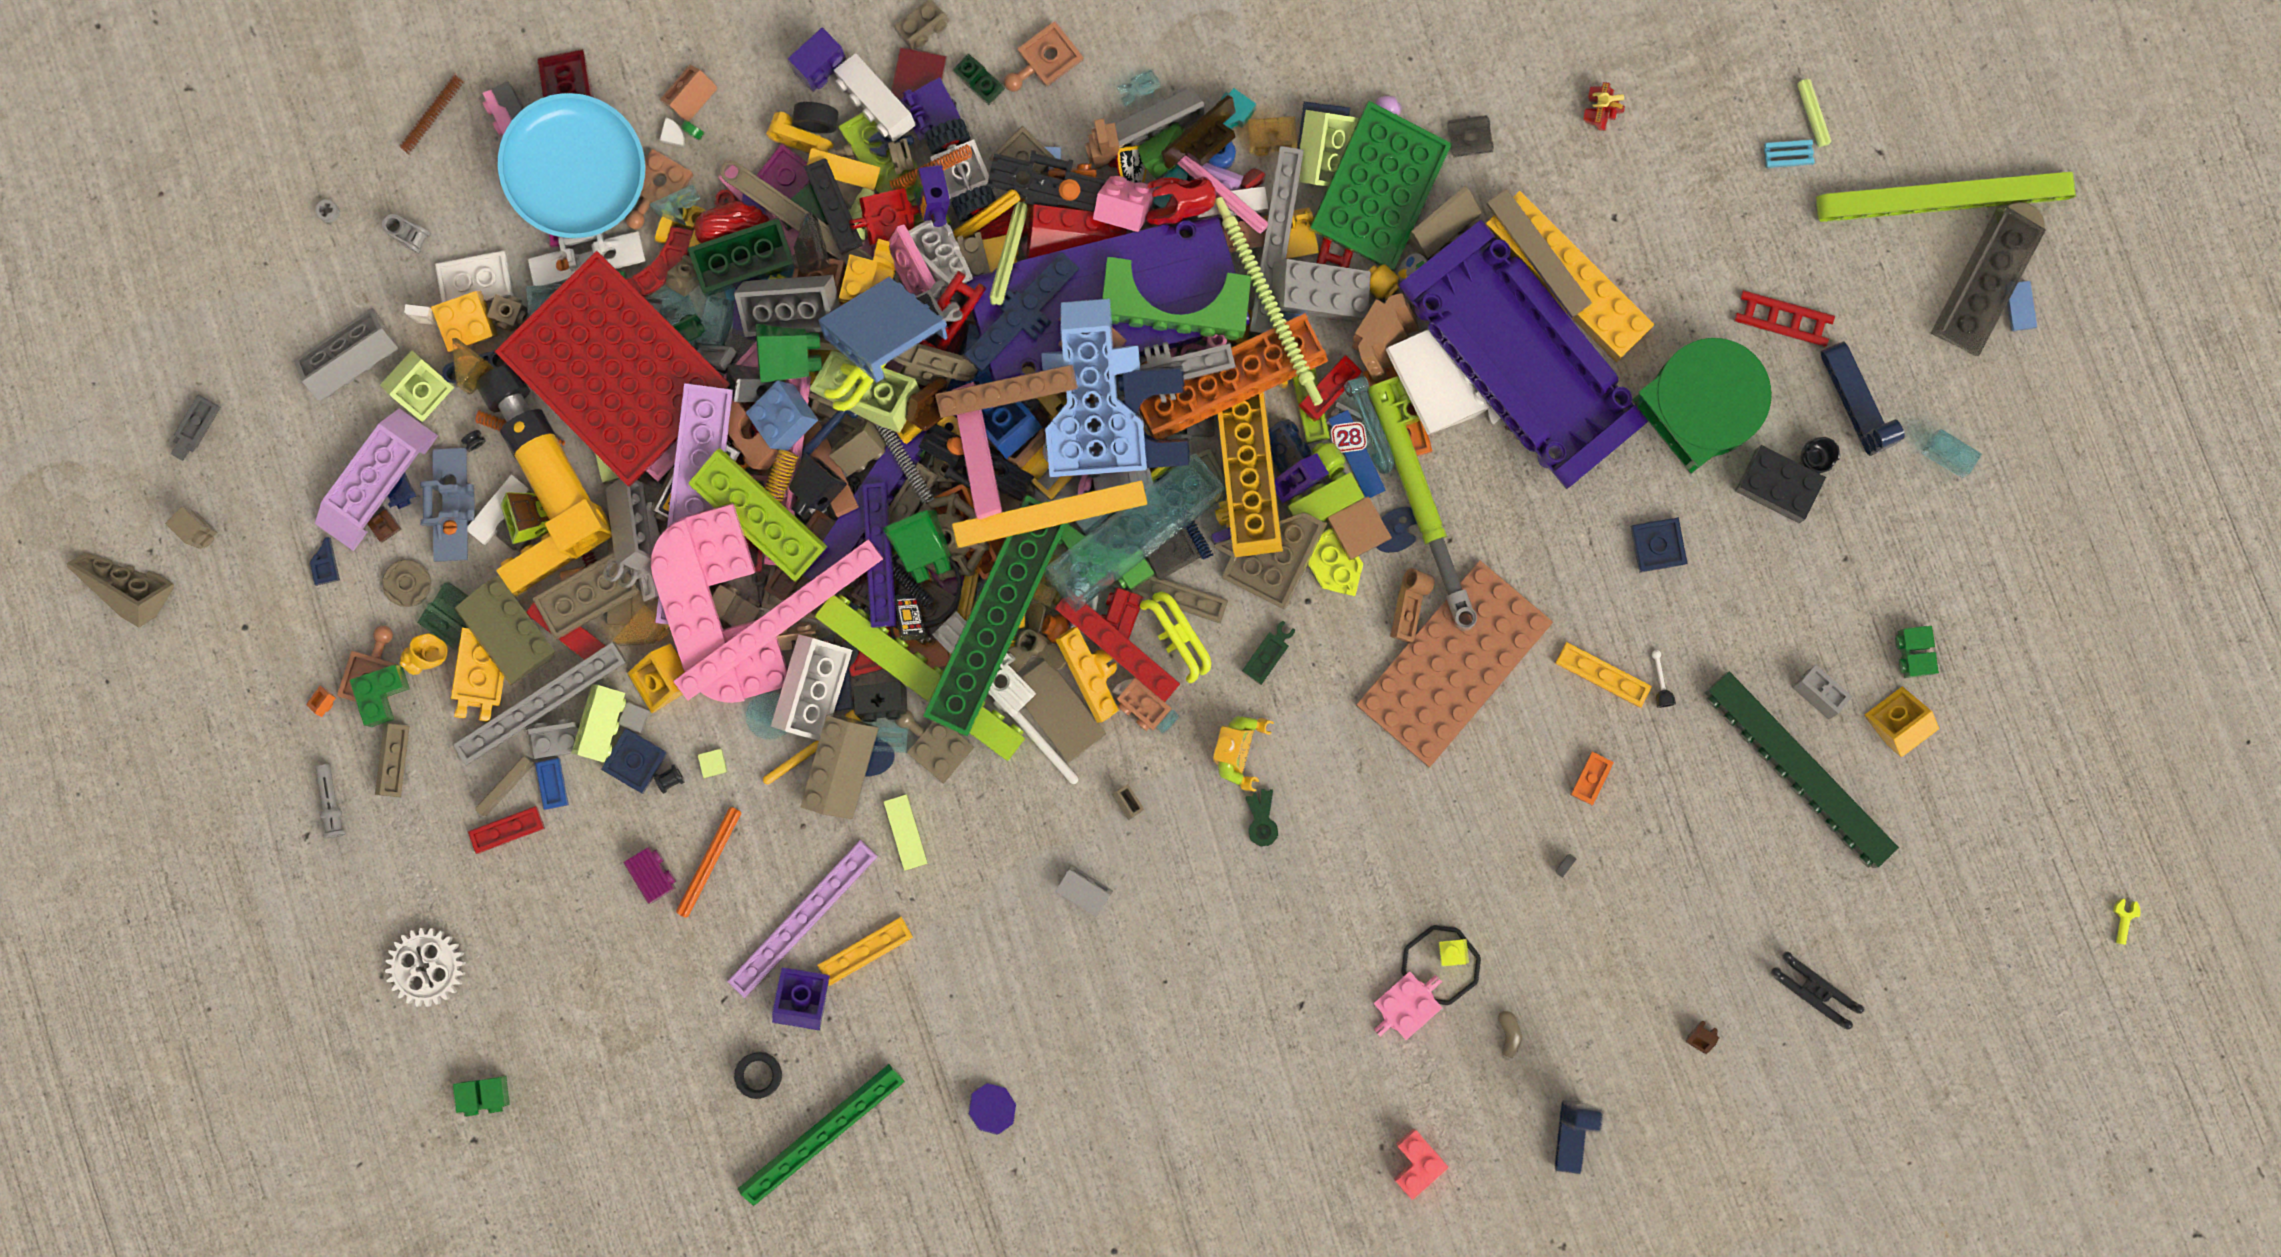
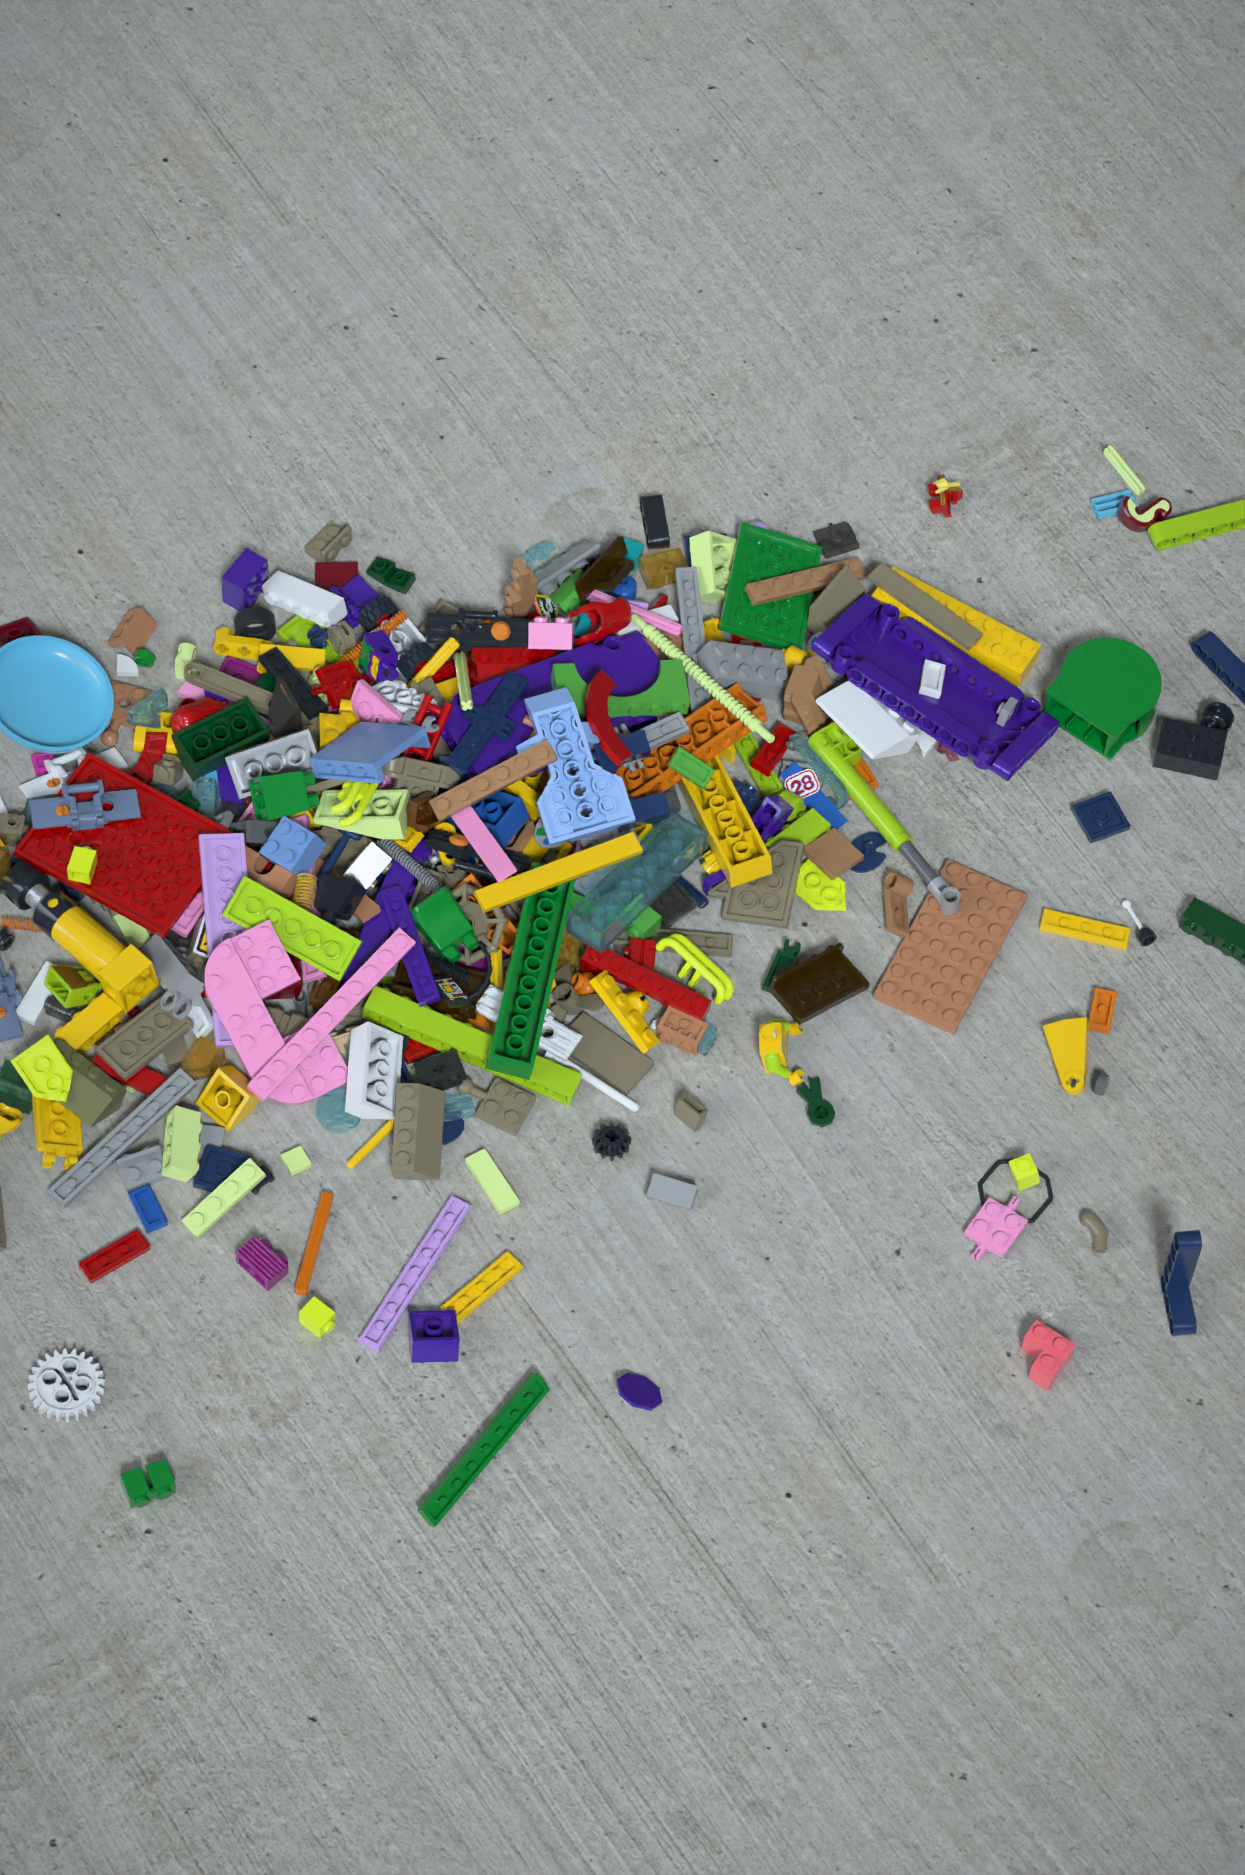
camera: 25 degrees left, 25 degrees down
(473, 616) = (45, 1070): none -> neon yellow tile
(504, 786) = (105, 1216): dark tan tile -> none
(558, 388) = (82, 864): none -> neon yellow brick
(574, 330) = (84, 815): none -> sand blue piece
(626, 795) = (223, 1198): none -> yellowish green plate
(691, 950) = (317, 1317): none -> neon yellow brick
(735, 148) = (185, 655): none -> yellowish green leg
(739, 1075) = (412, 1428): black tyre -> none
(1031, 822) = (611, 1133): none -> black gear
(1047, 70) = (449, 556): nougat plate -> none
(1135, 342) = (598, 718): none -> red tile
(1226, 411) = (690, 767): none -> bright green tile
(1278, 72) = (654, 522): none -> black beam
(1299, 685) = (817, 984): none -> dark brown bracket
(1419, 187) = (800, 582): none -> medium nougat plate
(1522, 341) = (932, 679): none -> white tile
(1542, 822) = (1069, 1048): none -> yellow piece
(1591, 398) = (1006, 710): none -> light grey plate
(1797, 311) = (1140, 620): red bar -> none
(1818, 183) = (1141, 521): none -> dark red animal

